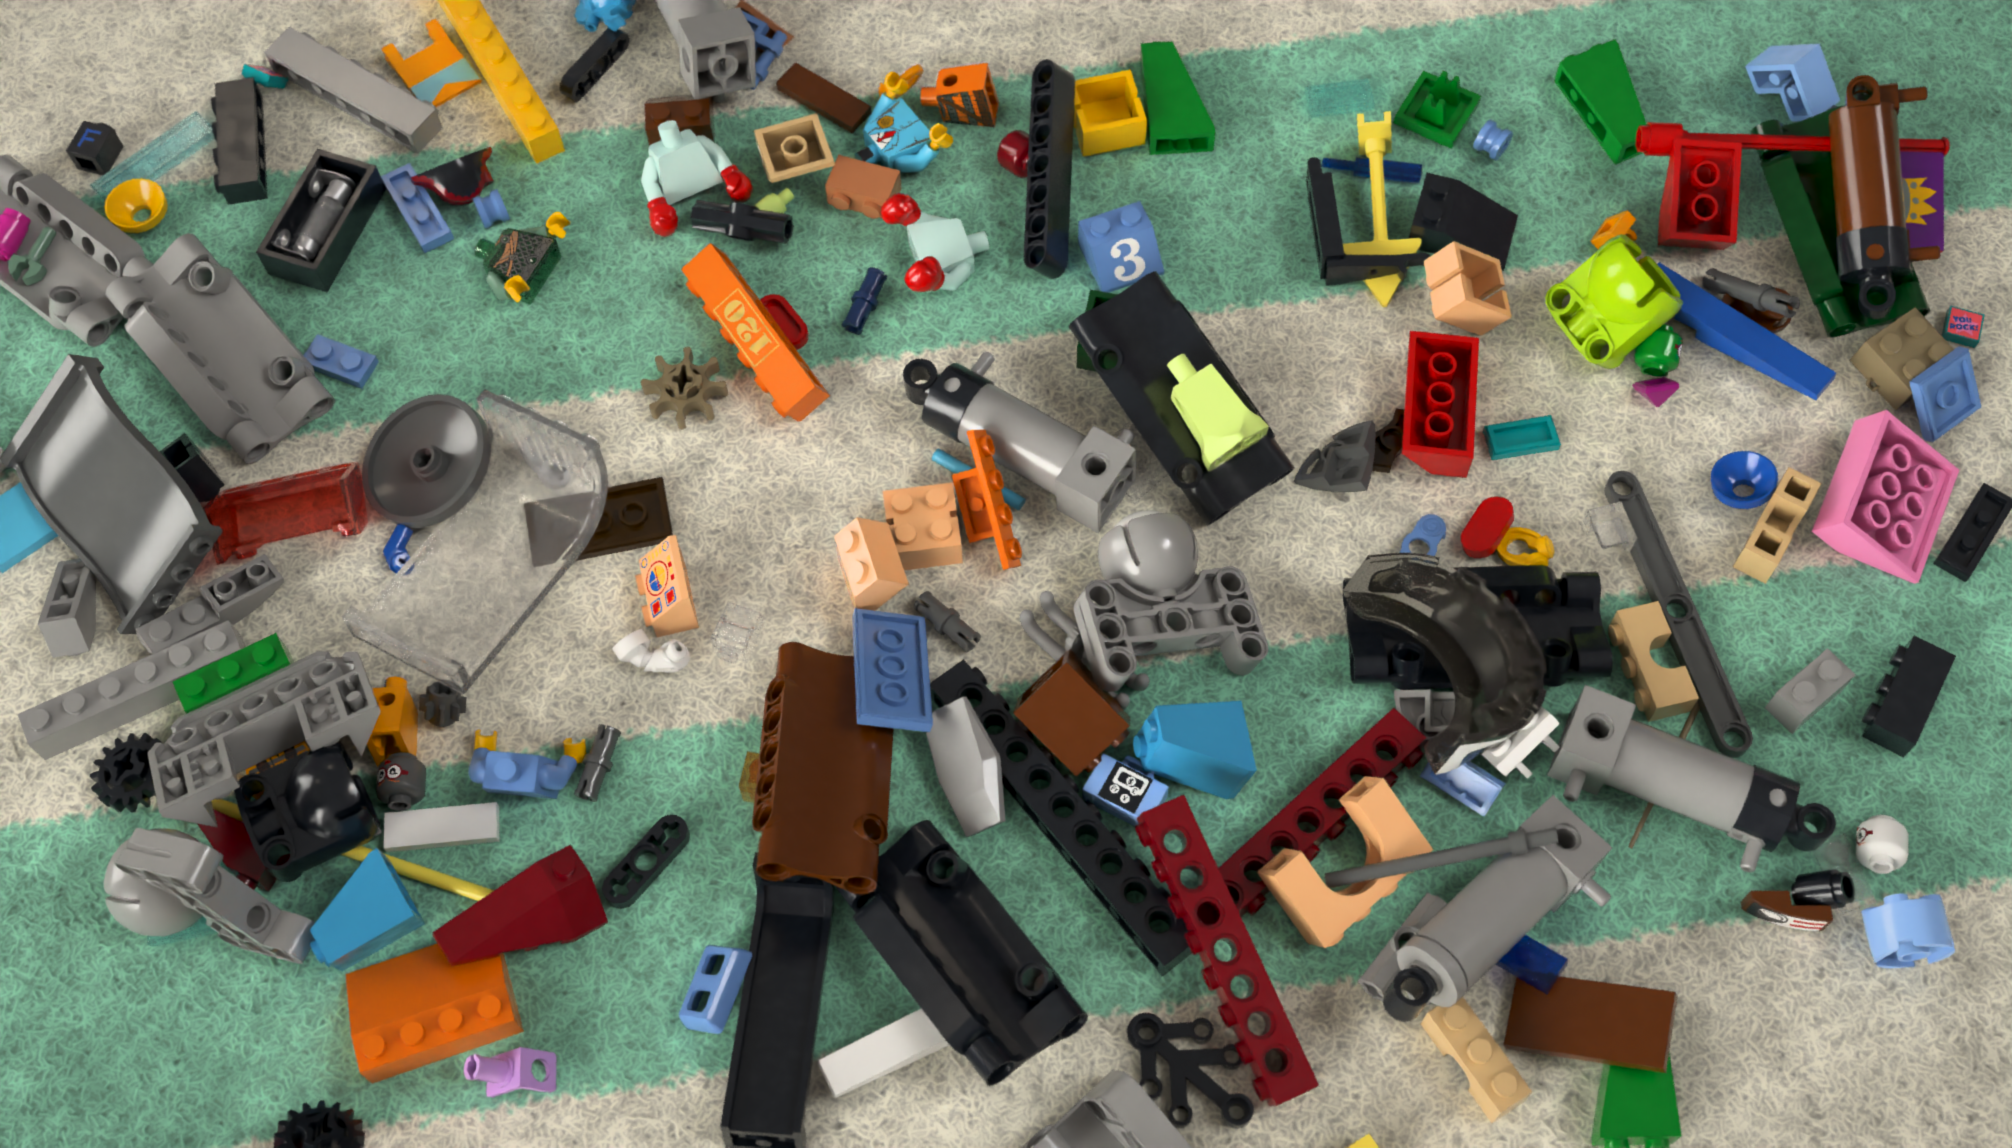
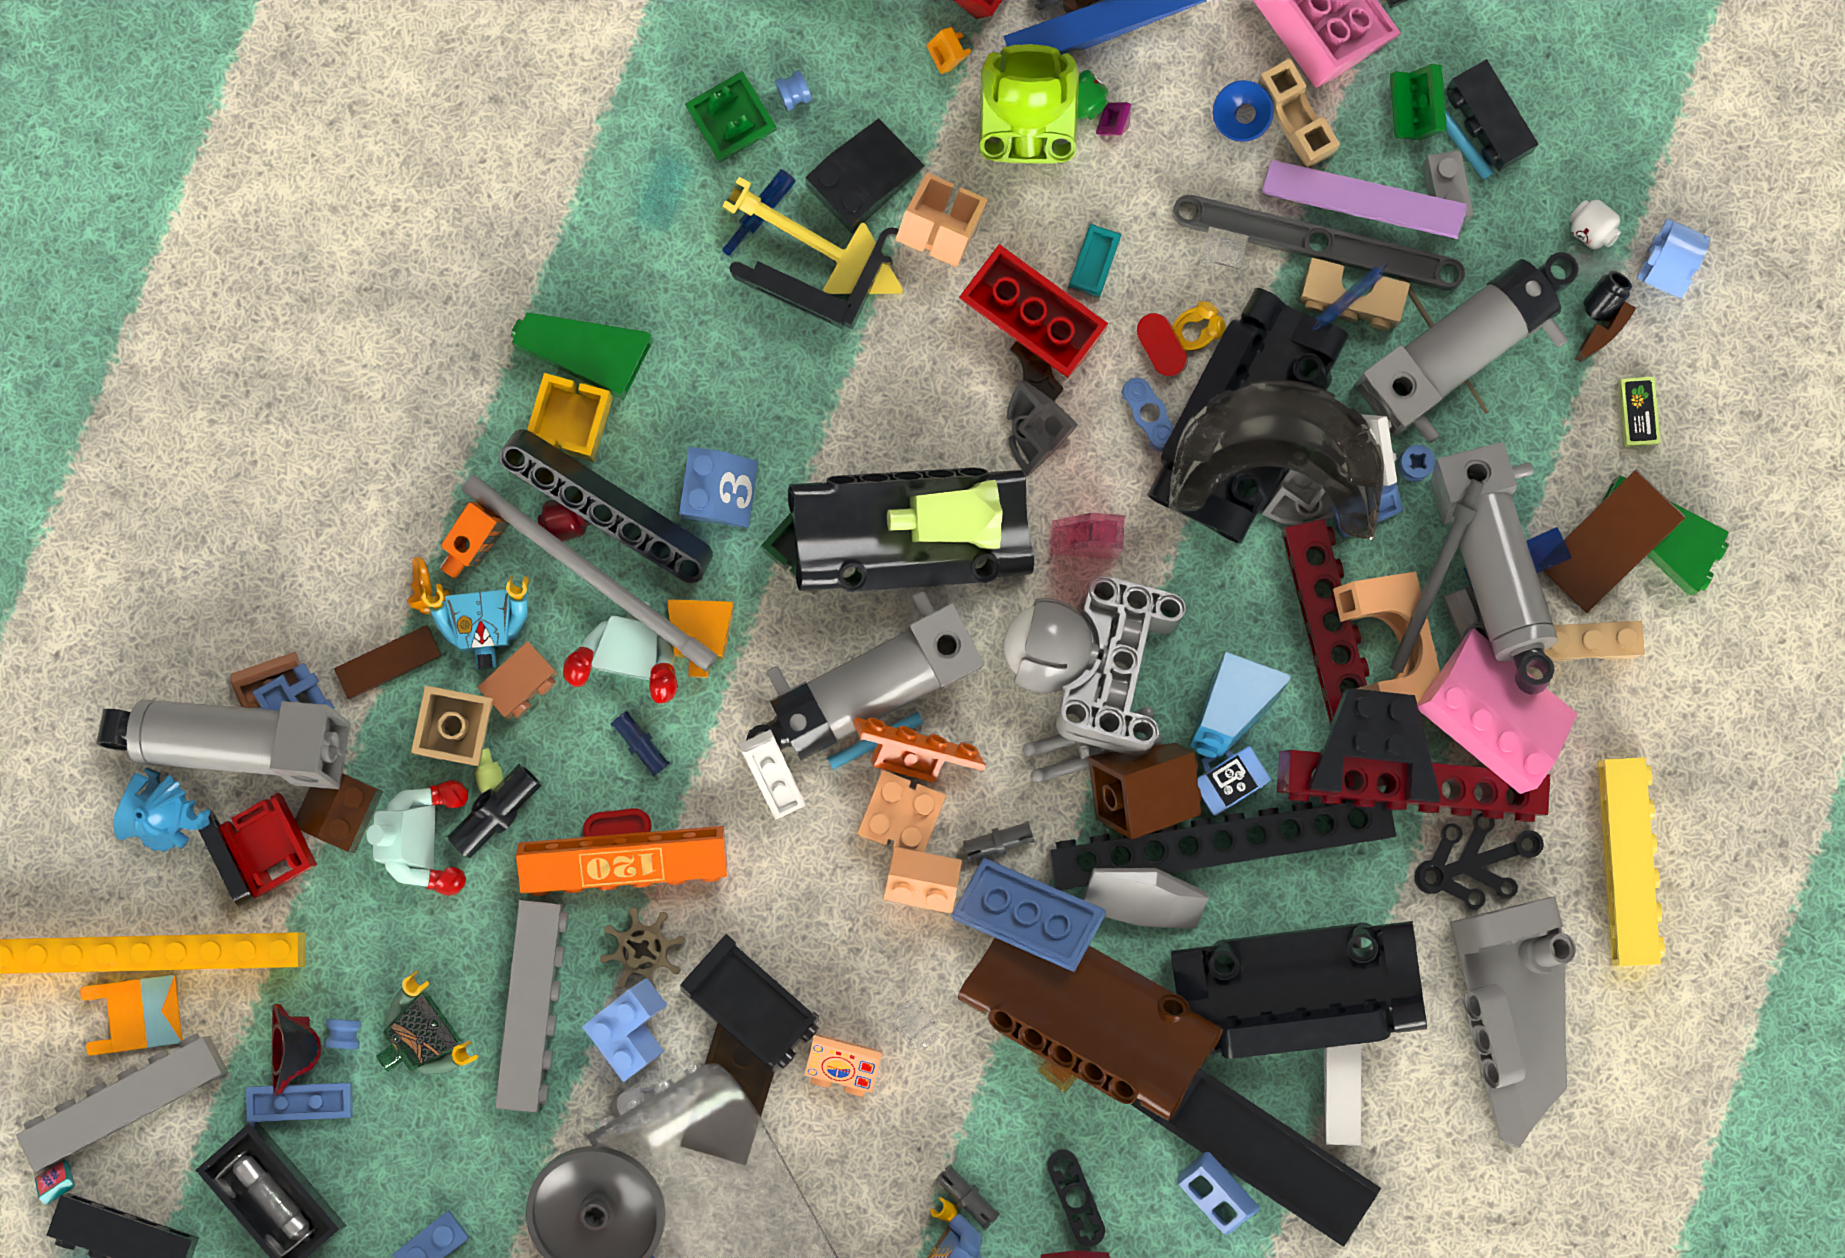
camera: 65 degrees left, 20 degrees up
(587, 328) = (530, 1006): none -> light grey brick
(606, 399) = (622, 1033): none -> light blue brick
(625, 83) = (264, 840): none -> red container
(668, 658) = (901, 1094): white arm -> none
(682, 487) = (750, 1004): none -> black panel
(895, 399) = (772, 774): none -> white tile
(968, 279) = (688, 646): none -> light grey piece
(989, 295) = (706, 622): none -> light orange torso
(1254, 870) = (1378, 729): none -> black wing
(1276, 551) = (1088, 536): none -> clear pink slope
(1337, 991) = (1494, 719): none -> bright pink slope
(1525, 805) = (1411, 468): none -> medium blue wheel
(1659, 649) = (1365, 282): none -> blue piece
(1735, 990) = (1639, 411): none -> tile
(1746, 621) = (1365, 199): none -> lavender tile
(1865, 682) = (1467, 148): none -> medium azure bar
(1867, 622) = (1418, 103): none -> green bracket

